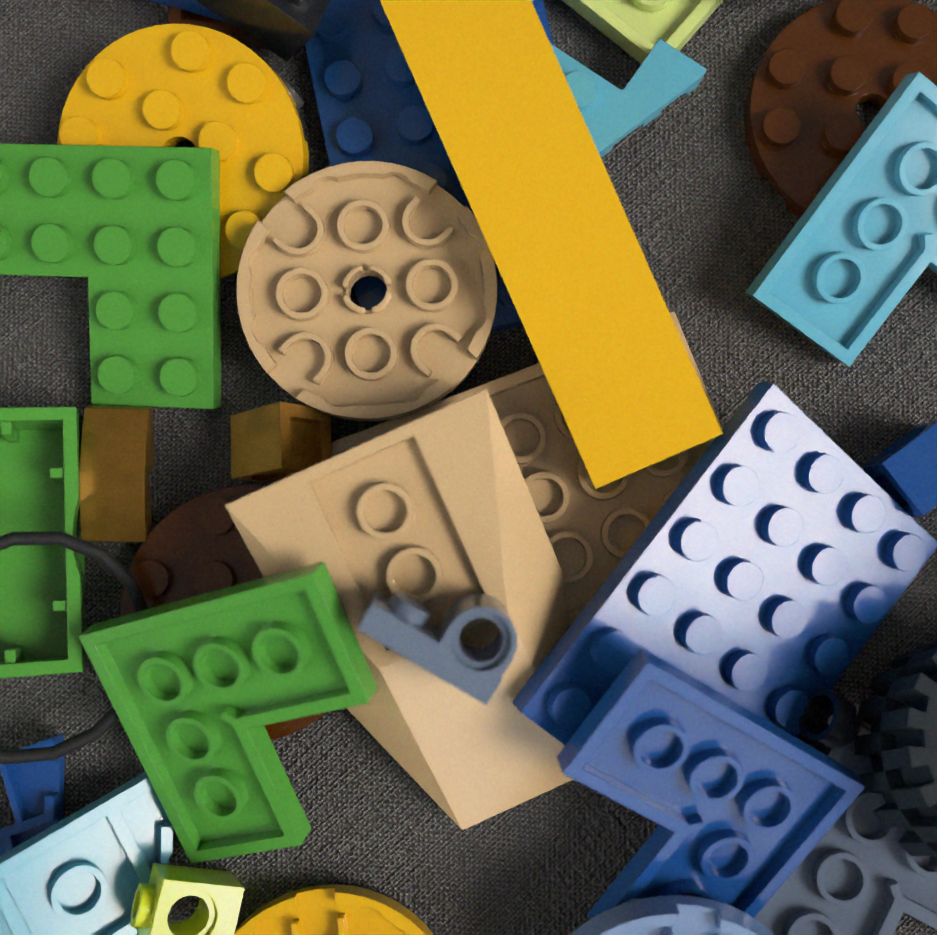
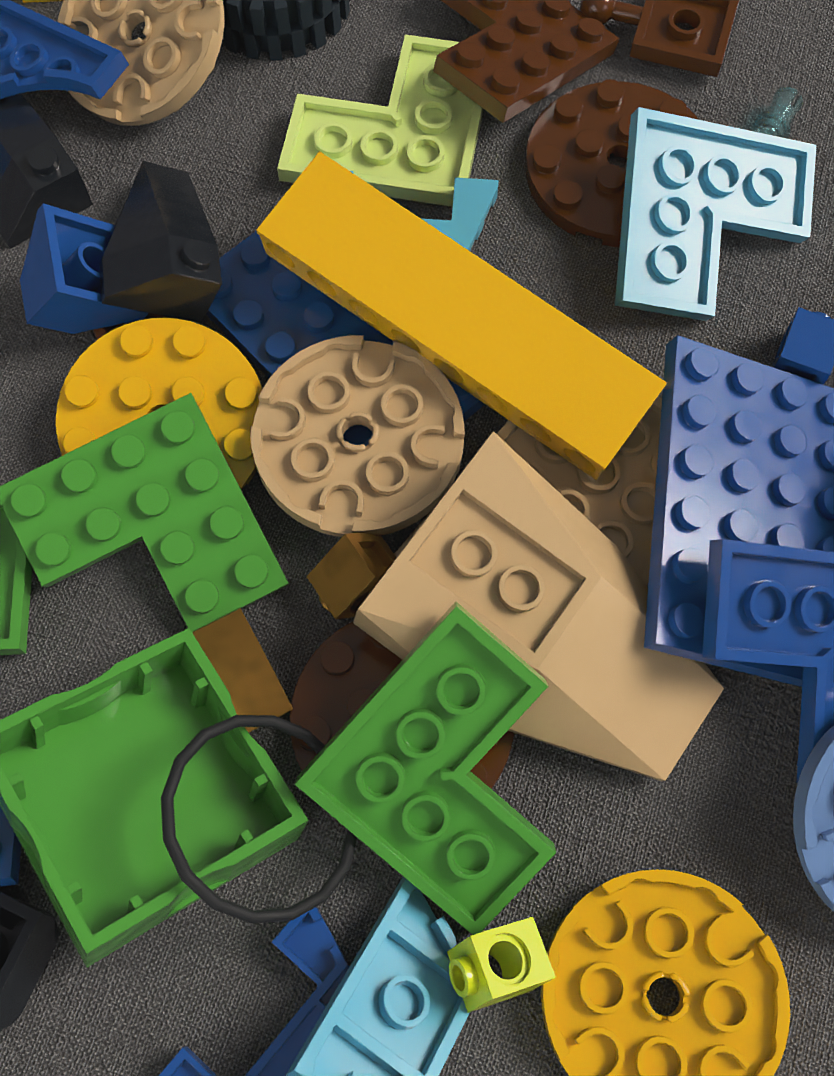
camera: 35 degrees left, 15 degrees down
(404, 628) = (575, 615): sand blue plate -> none

